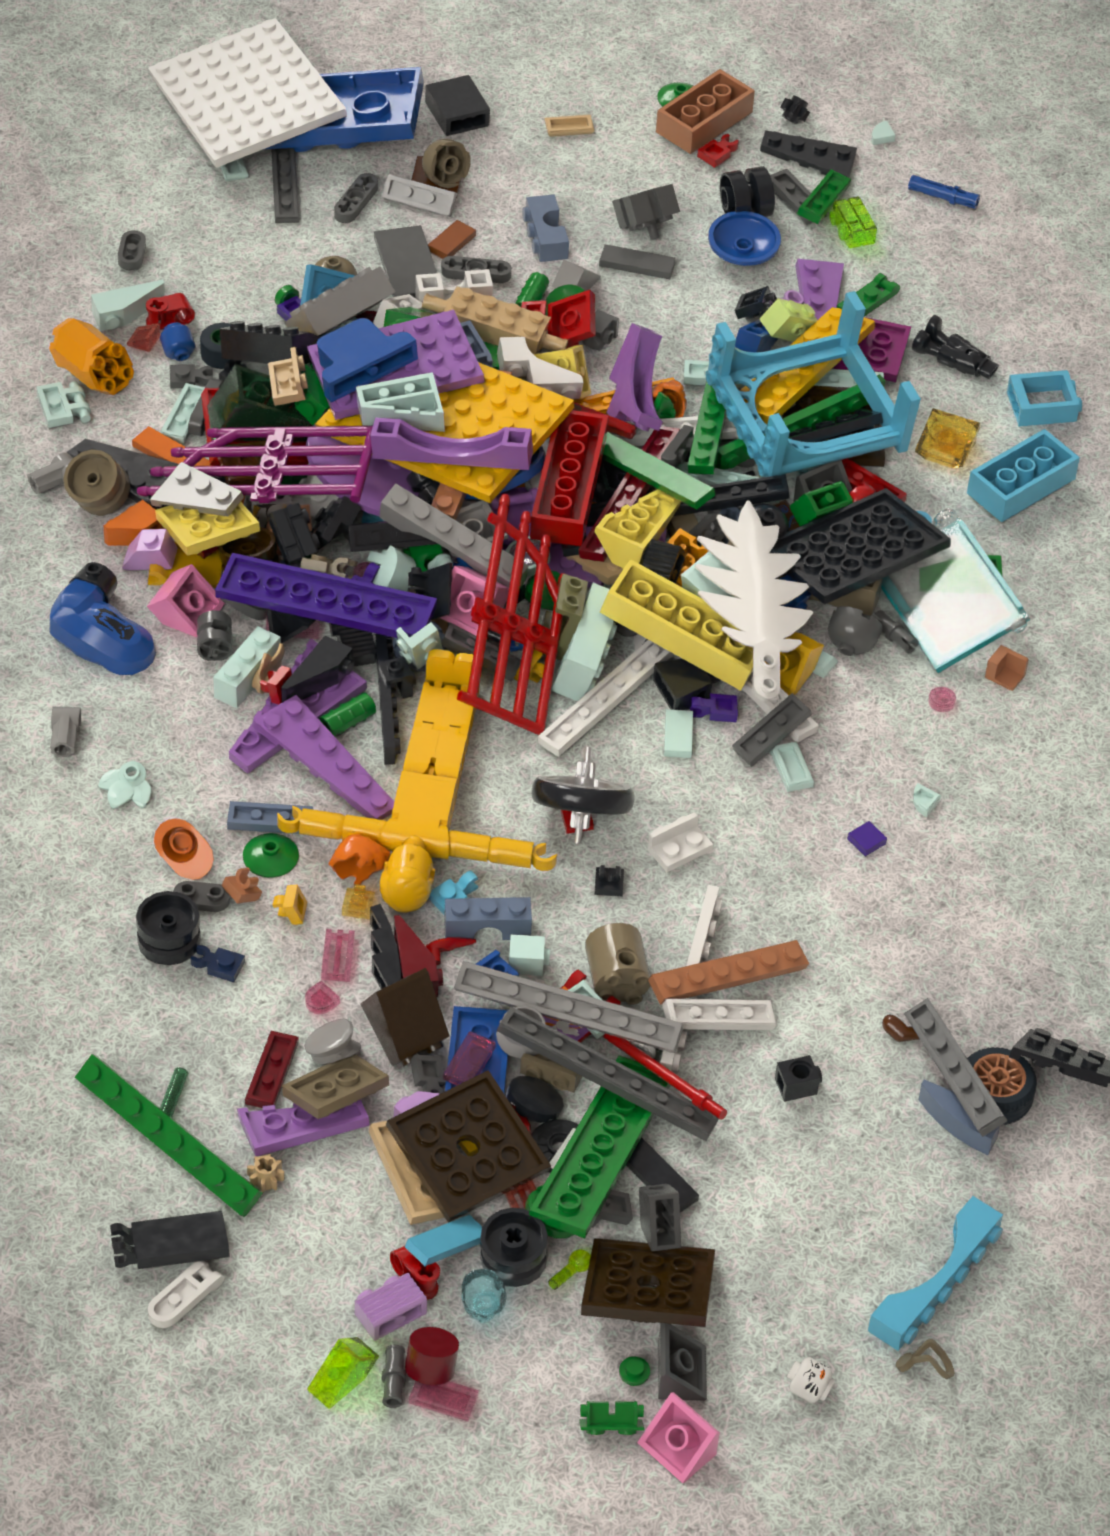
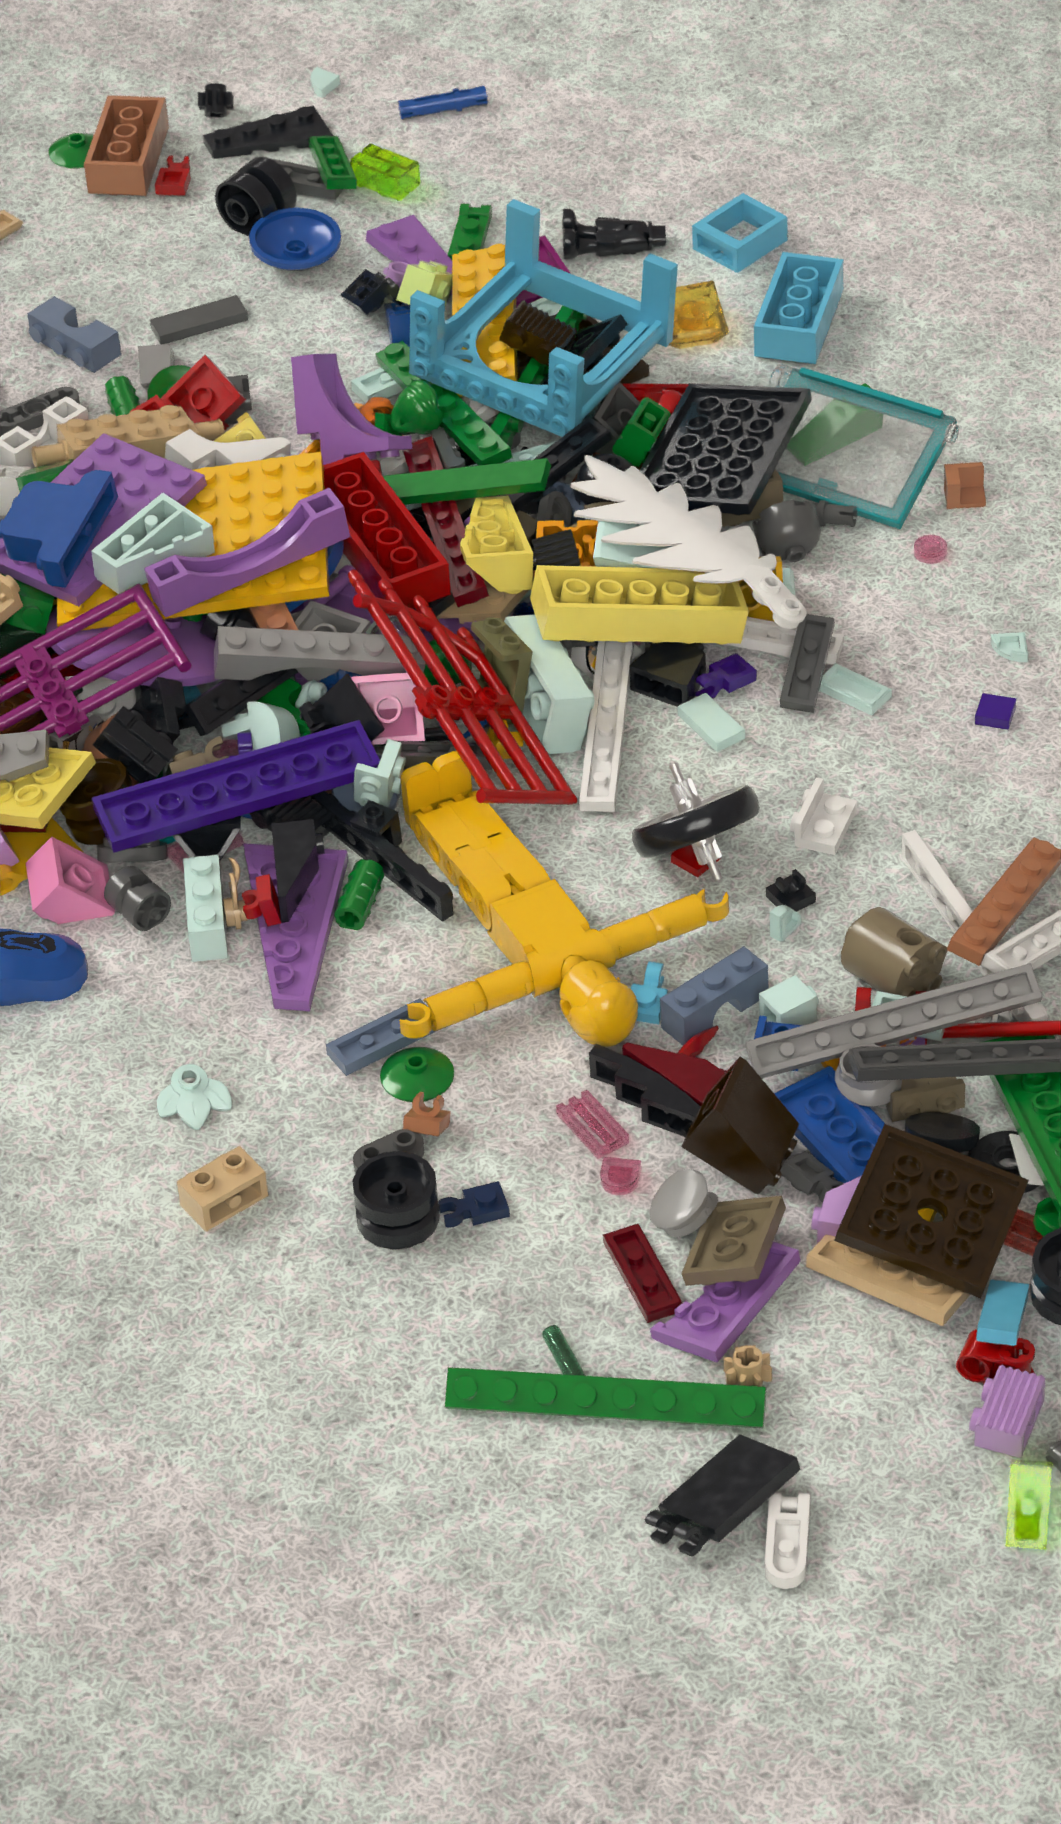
camera: 30 degrees left, 5 degrees down
(64, 726) = (65, 1077): light grey piece -> none
(82, 855) = (222, 1188): none -> tan brick
(183, 848) = (340, 1114): orange piece -> none
(291, 904) = (495, 1105): yellow tile -> none
(311, 743) = (345, 937): medium lavender wing -> none
(358, 858) = (522, 1016): orange hair -> none
(358, 902) = (559, 1062): clear yellow tile -> none
(469, 1058) = (843, 1134): clear pink tile -> none
(584, 896) = (783, 922): none -> light aqua tile
(647, 209) = (166, 260): dark grey brick -> none
(683, 405) = (416, 410): none -> green hair
(810, 397) = (536, 333): none -> dark brown brick

